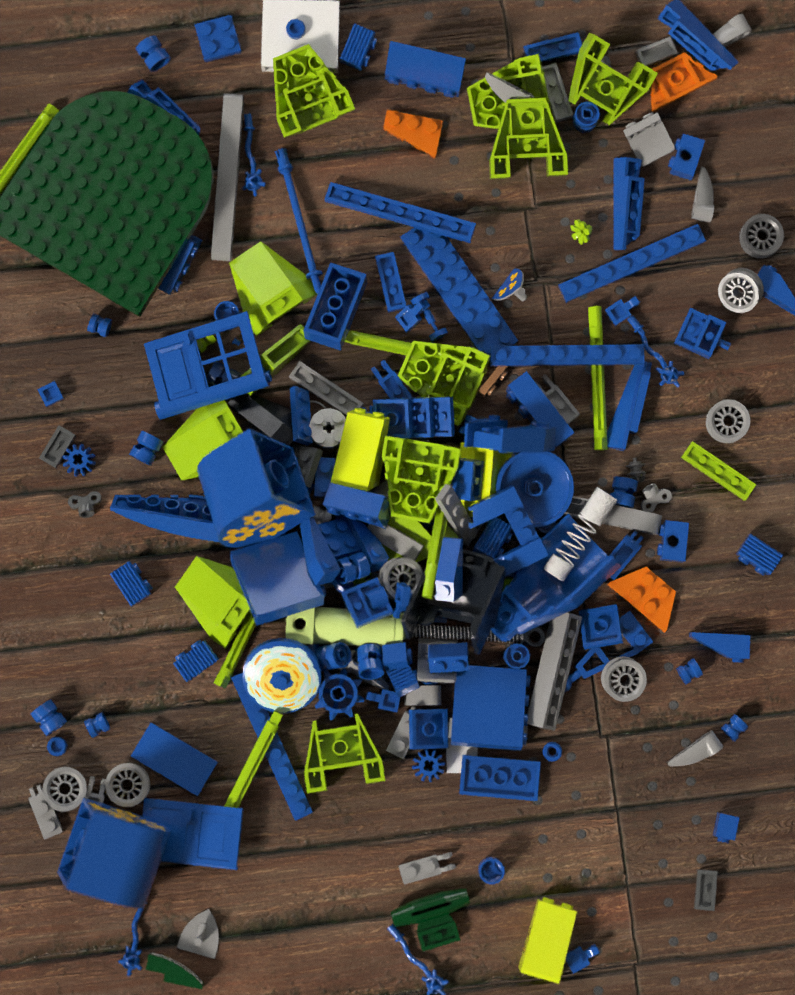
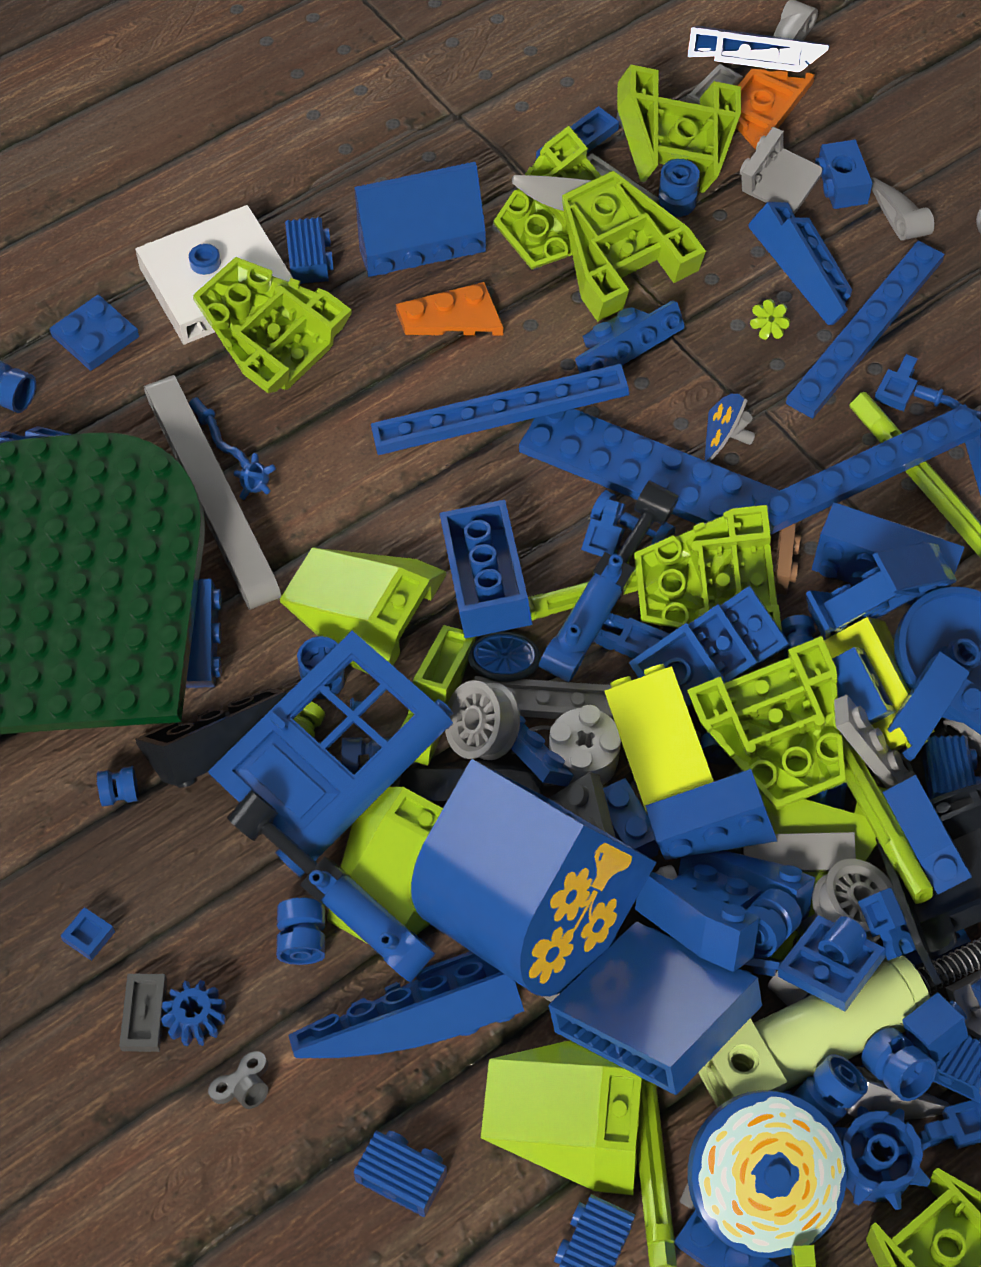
camera: 25 degrees left, 25 degrees down
(157, 322) = (193, 748): none -> black wedge
(169, 435) = (338, 892): none -> blue piece
(285, 169) = (293, 439): blue bar -> none
(285, 390) = (483, 720): none -> light grey wheel
(320, 358) = (504, 656): none -> blue wheel
(388, 350) = (604, 589): none -> blue piece
(390, 282) = (544, 507): blue plate -> none
(496, 199) = (628, 336): none -> blue bracket

